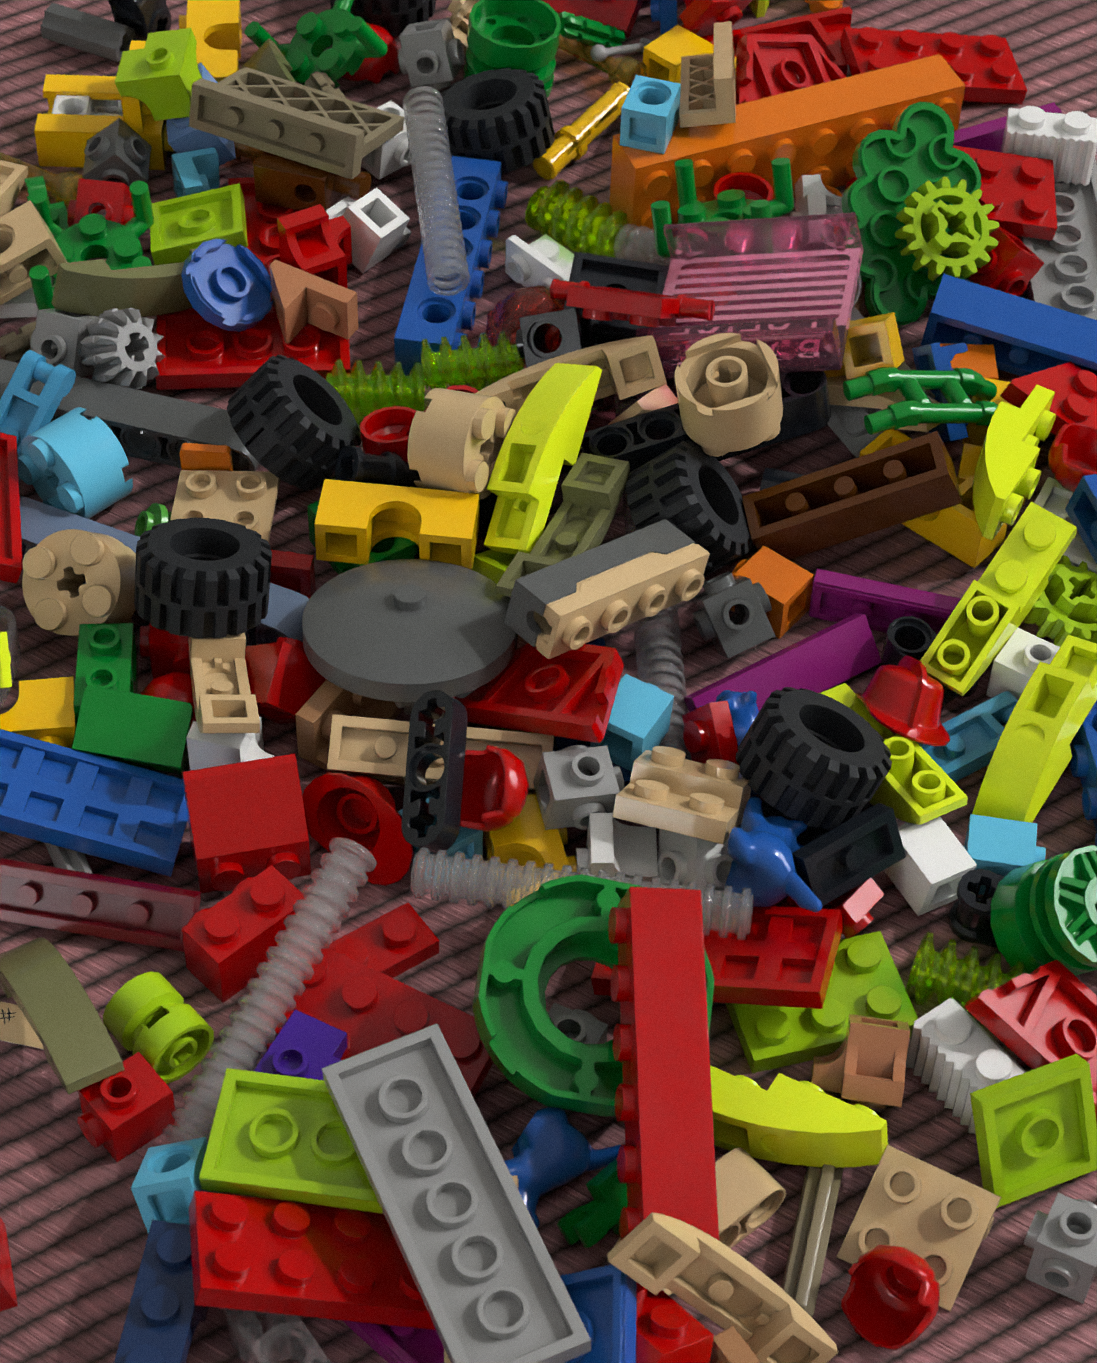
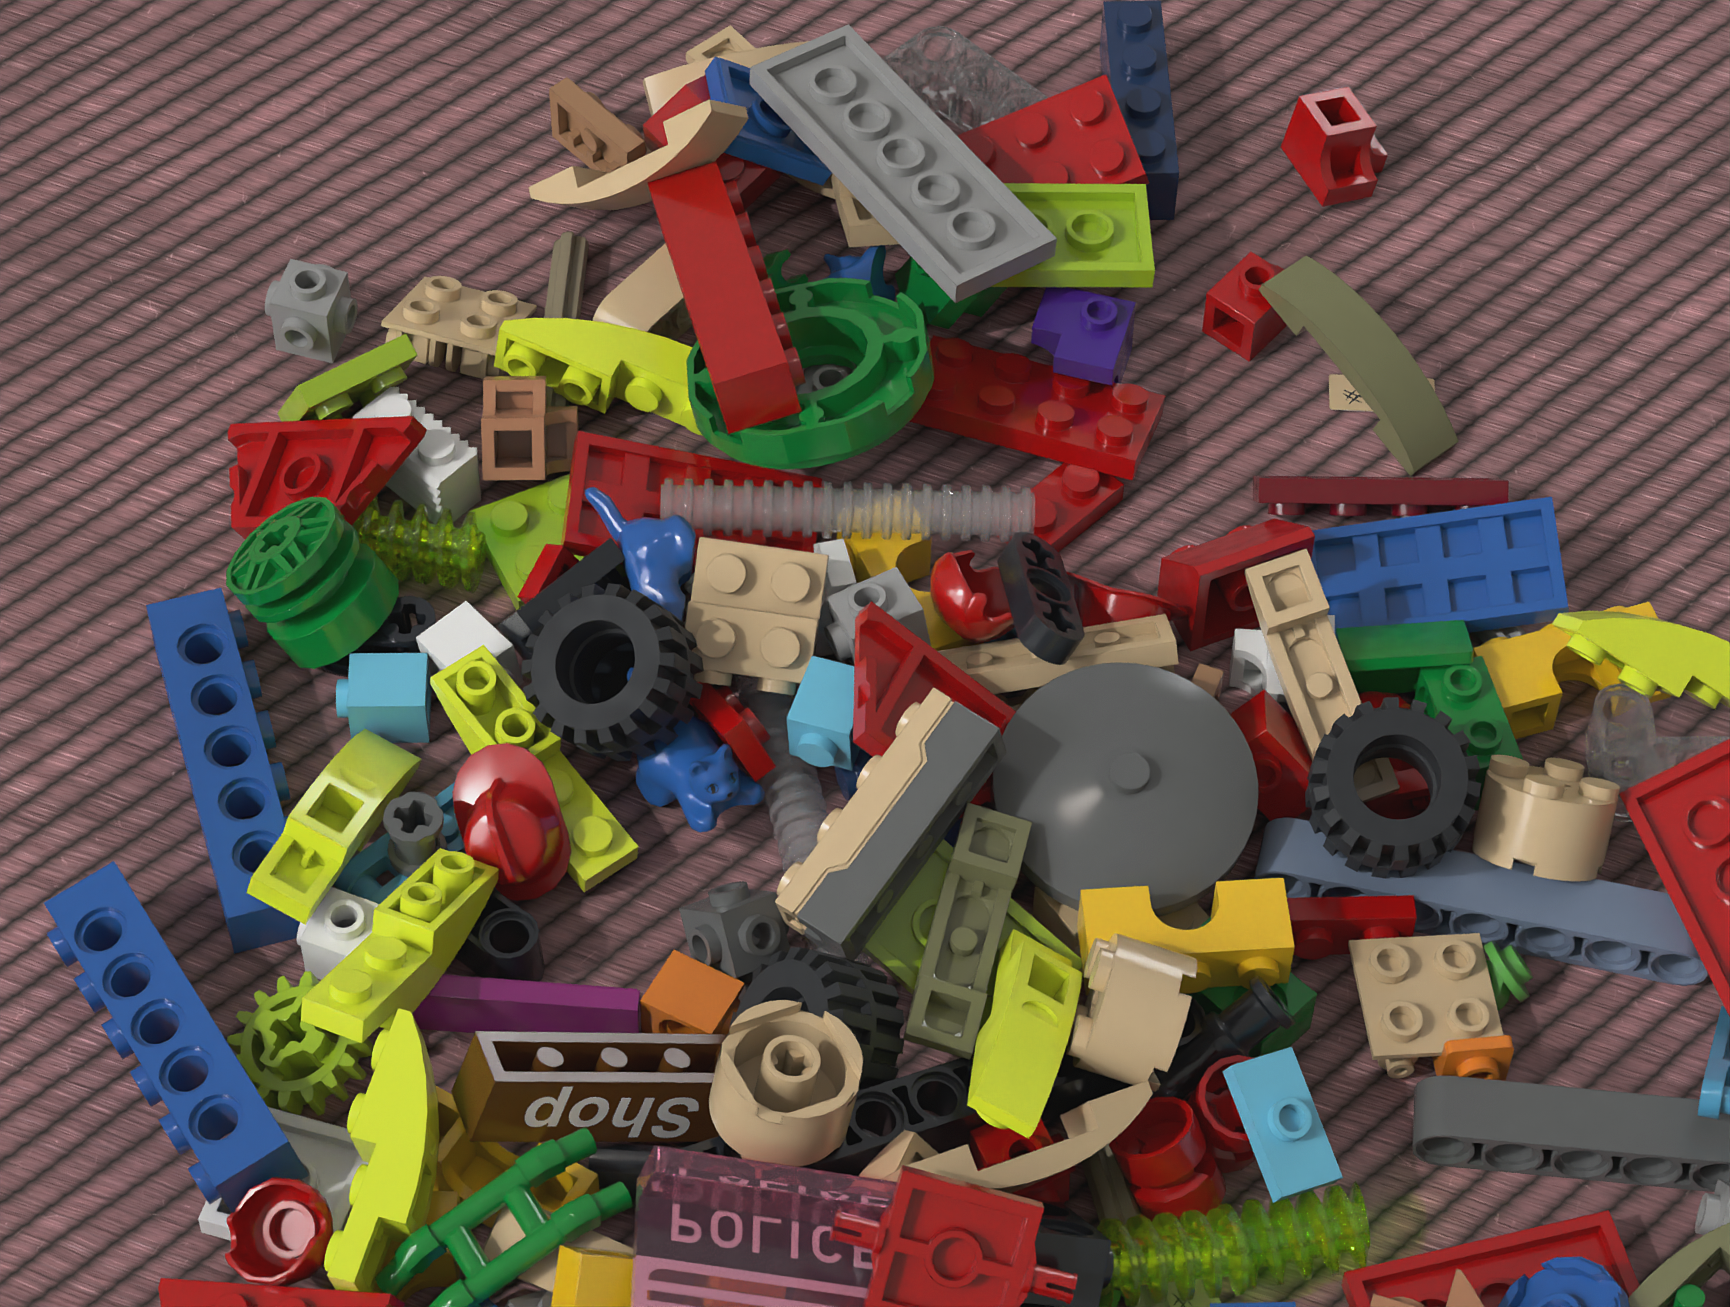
camera: 170 degrees right, 5 degrees up
(75, 464) = (1638, 1000): medium azure brick -> none
(122, 348) = (1661, 1197): light grey gear -> none
(153, 1020) = (1255, 375): lime wheel -> none
(169, 1181) = (1187, 211): medium azure brick -> none
(233, 935) = (1196, 478): red brick -> none
(277, 983) = (1139, 383): clear piece -> none
(292, 422) = (1423, 1099): black tyre -> none
(371, 401) = (1282, 1124): none -> medium azure plate
(807, 664) = (660, 889): magenta tile -> none
(891, 1296) = (478, 251): red hair -> none
(980, 715) = (414, 831): none -> dark grey bush

